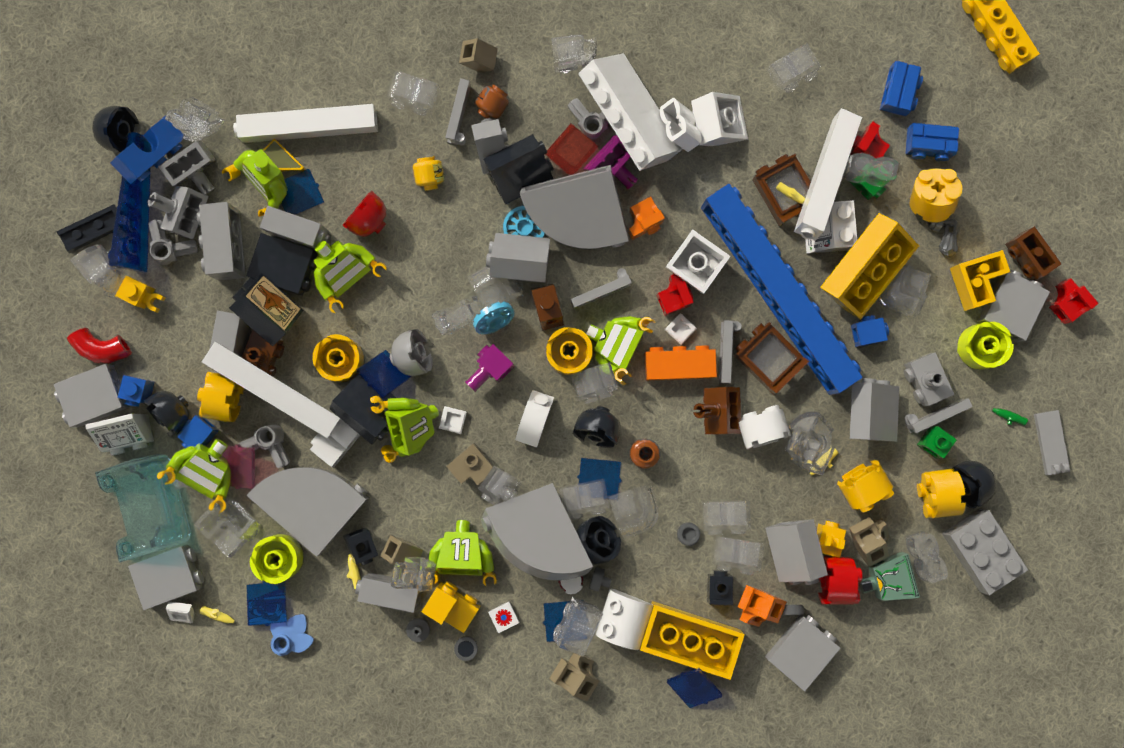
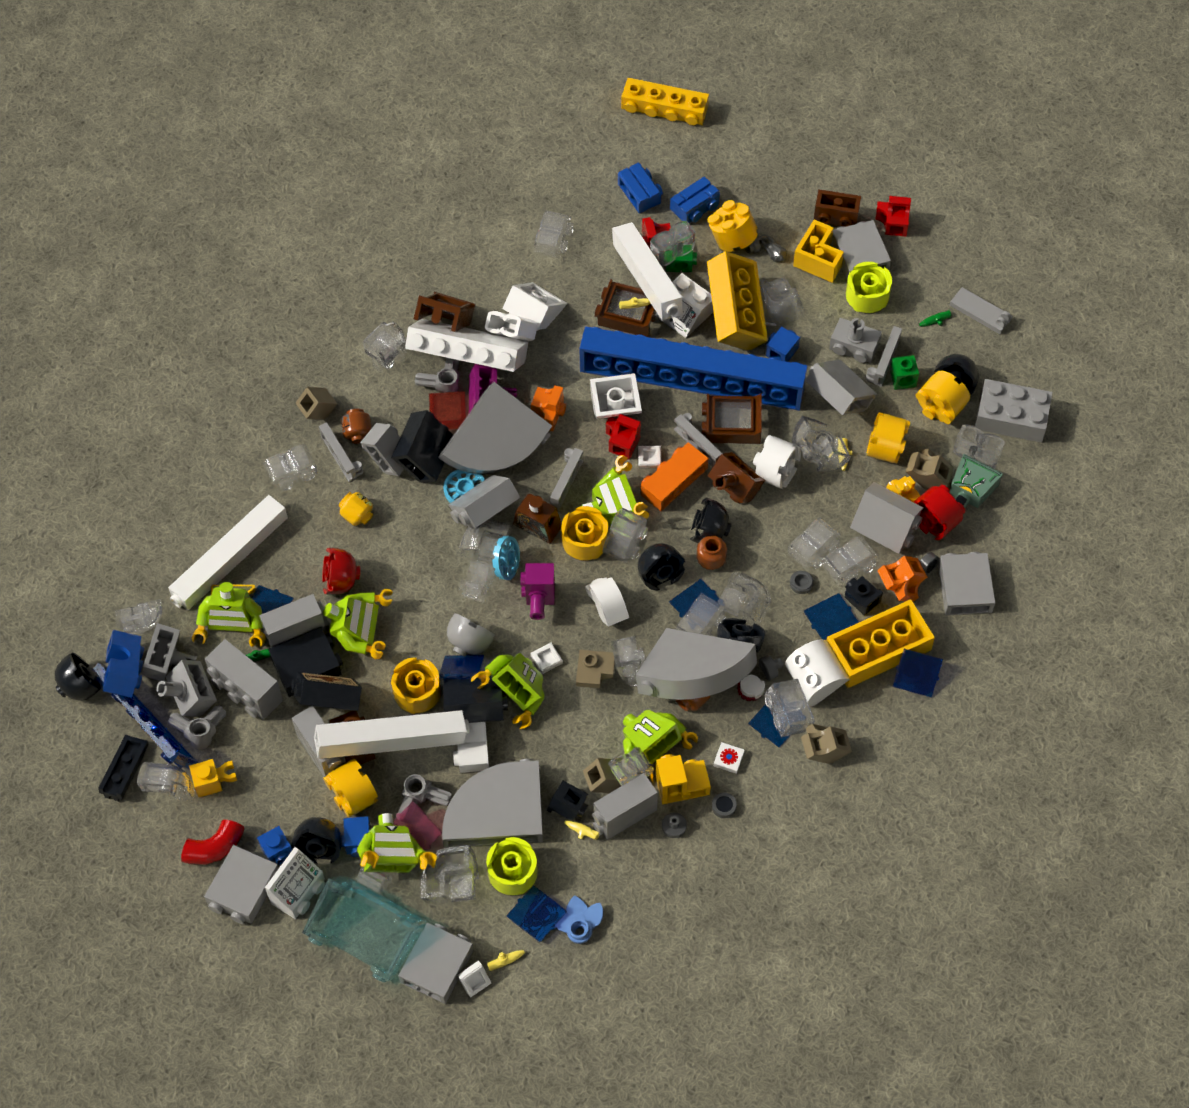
camera: 40 degrees left, 25 degrees down
(255, 224) = (258, 655): none -> green helmet
(648, 62) = (445, 306): none -> reddish brown window
(667, 429) = (711, 519): none -> black cylinder
(682, 580) = (830, 616): none -> clear blue piece

